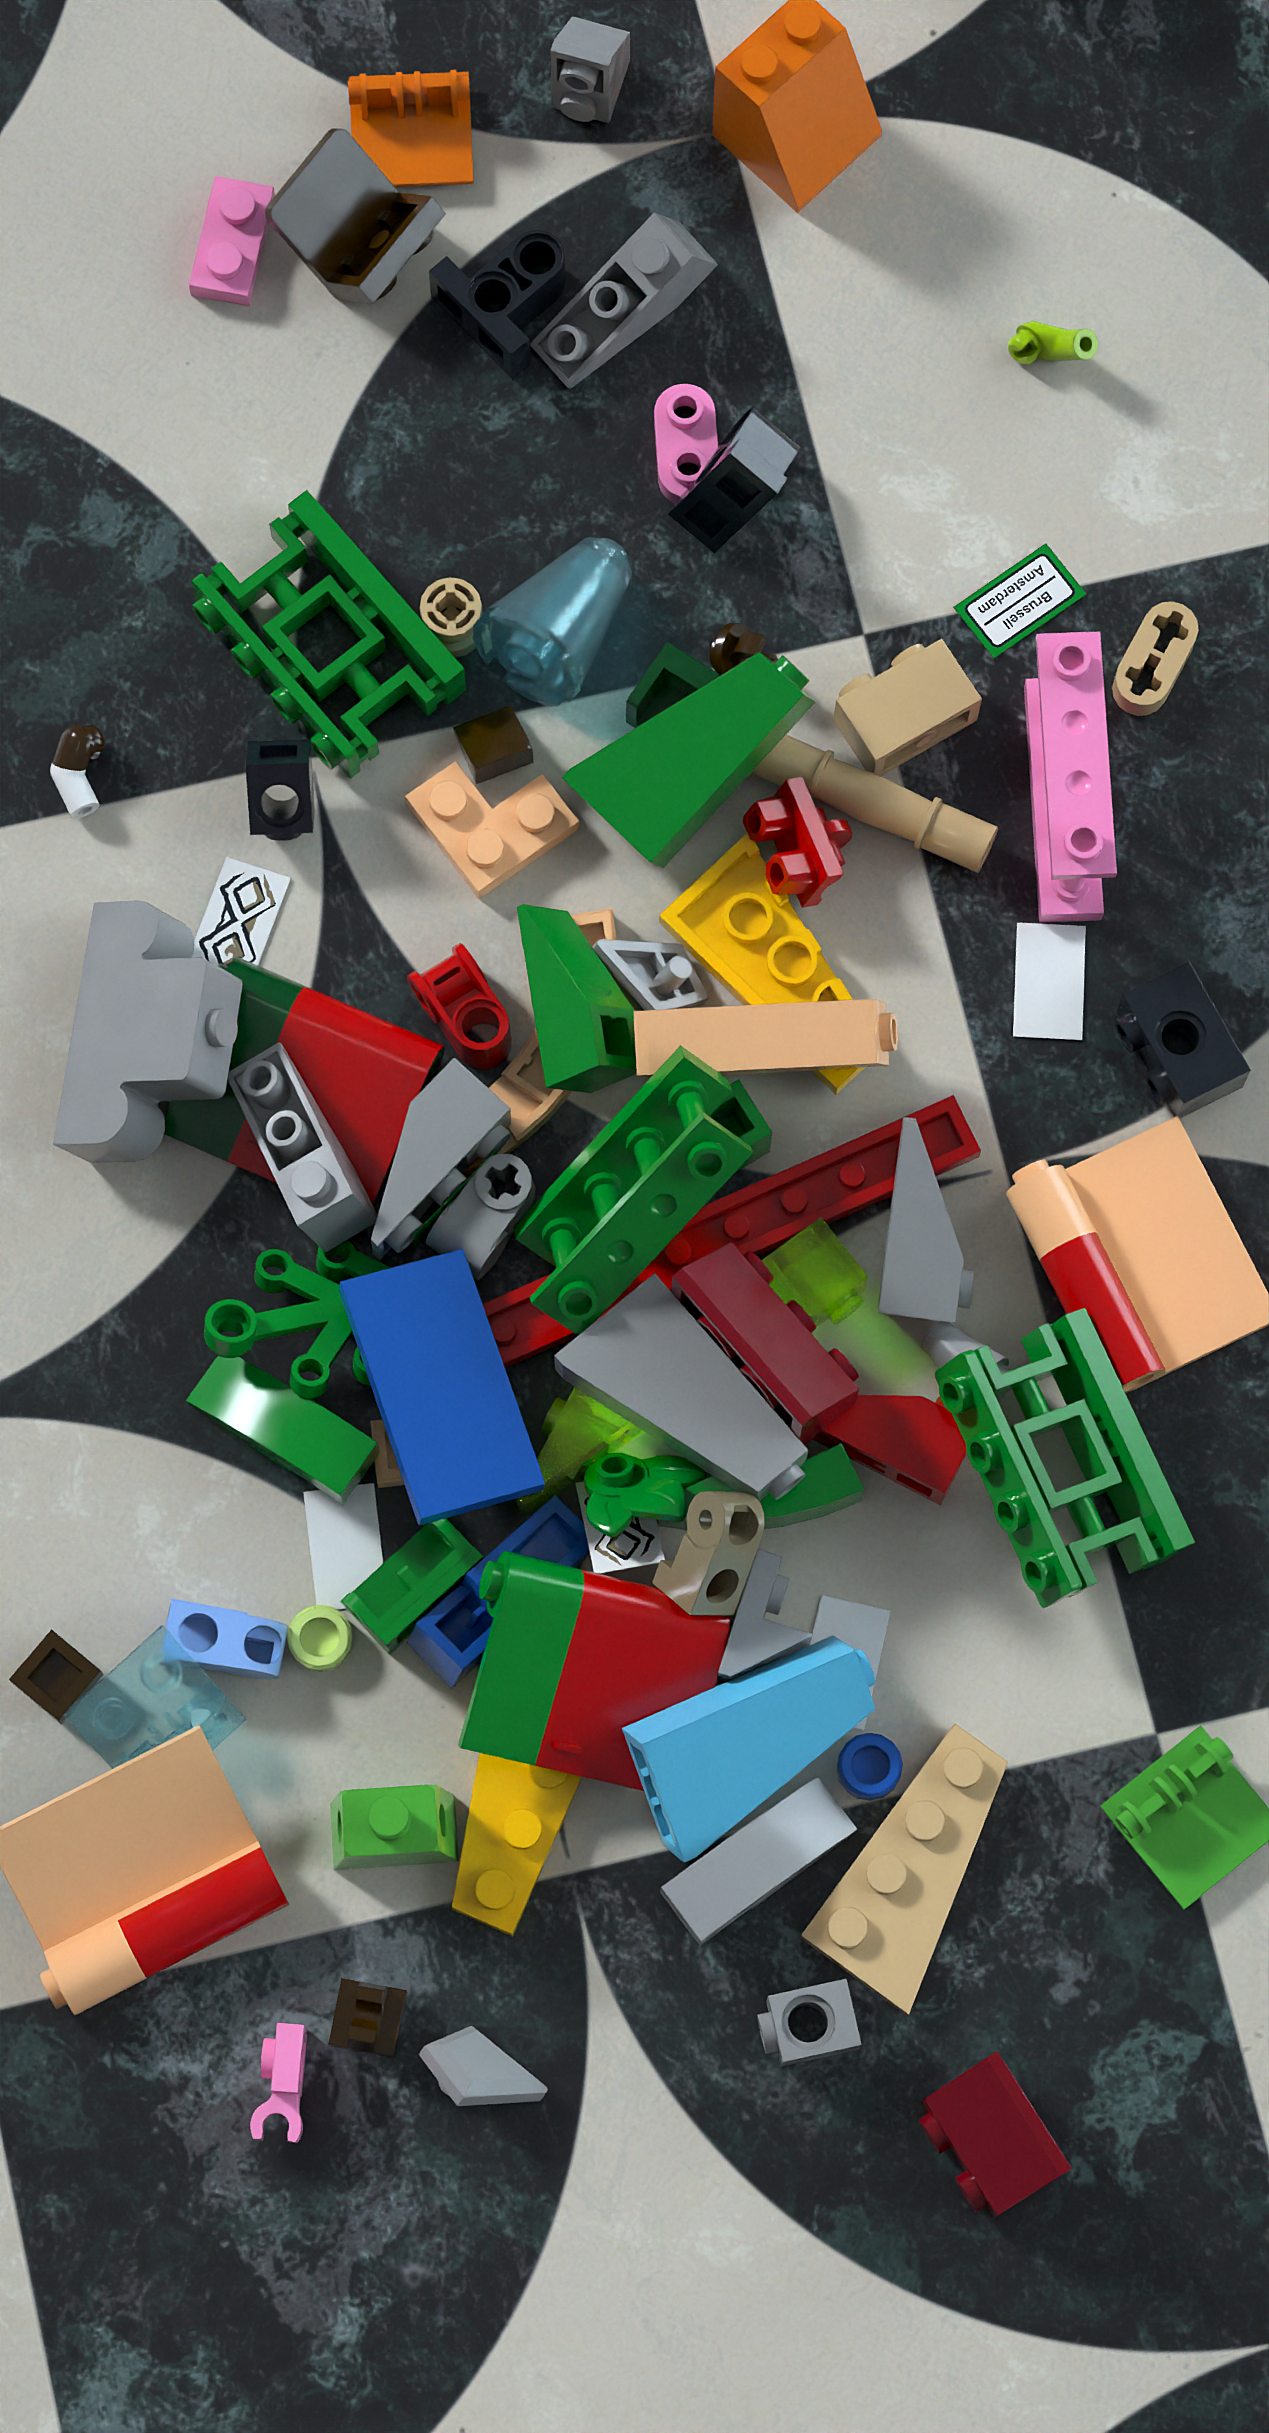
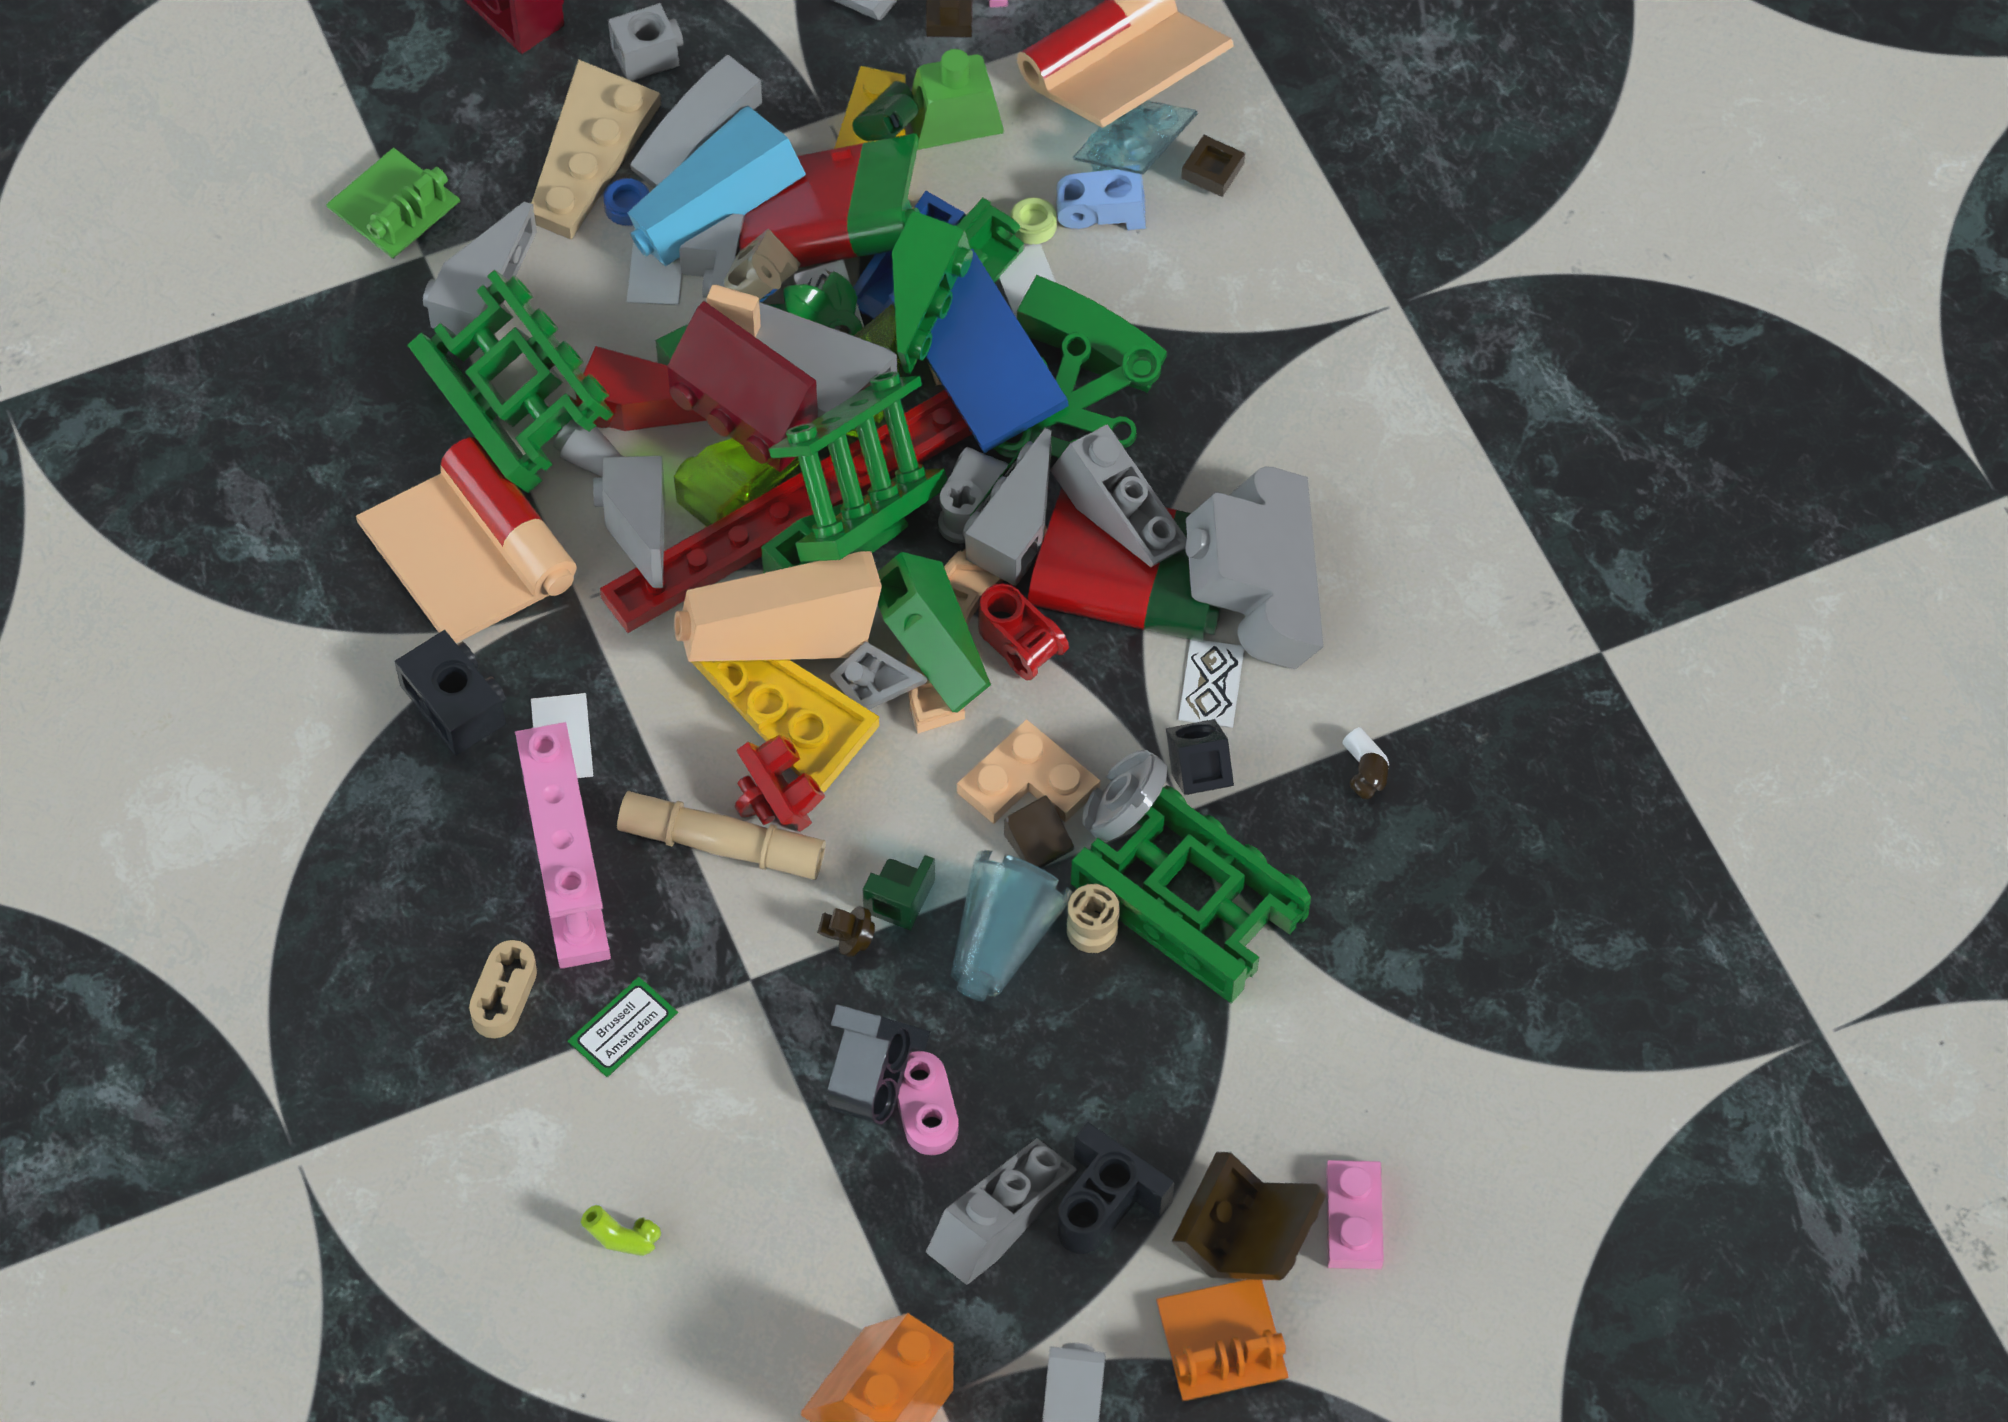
camera: 170 degrees right, 15 degrees down
(381, 744) = (1129, 795): none -> light grey tile
(497, 1474) = (925, 269): none -> green slope
(501, 1802) = (886, 114): none -> dark green piece
(691, 757) = (876, 821): green slope -> none
(761, 1430) = (737, 306): none -> light nougat tile
(906, 707) = (705, 906): tan brick -> none
(1094, 1648) = (502, 247): none -> light grey slope

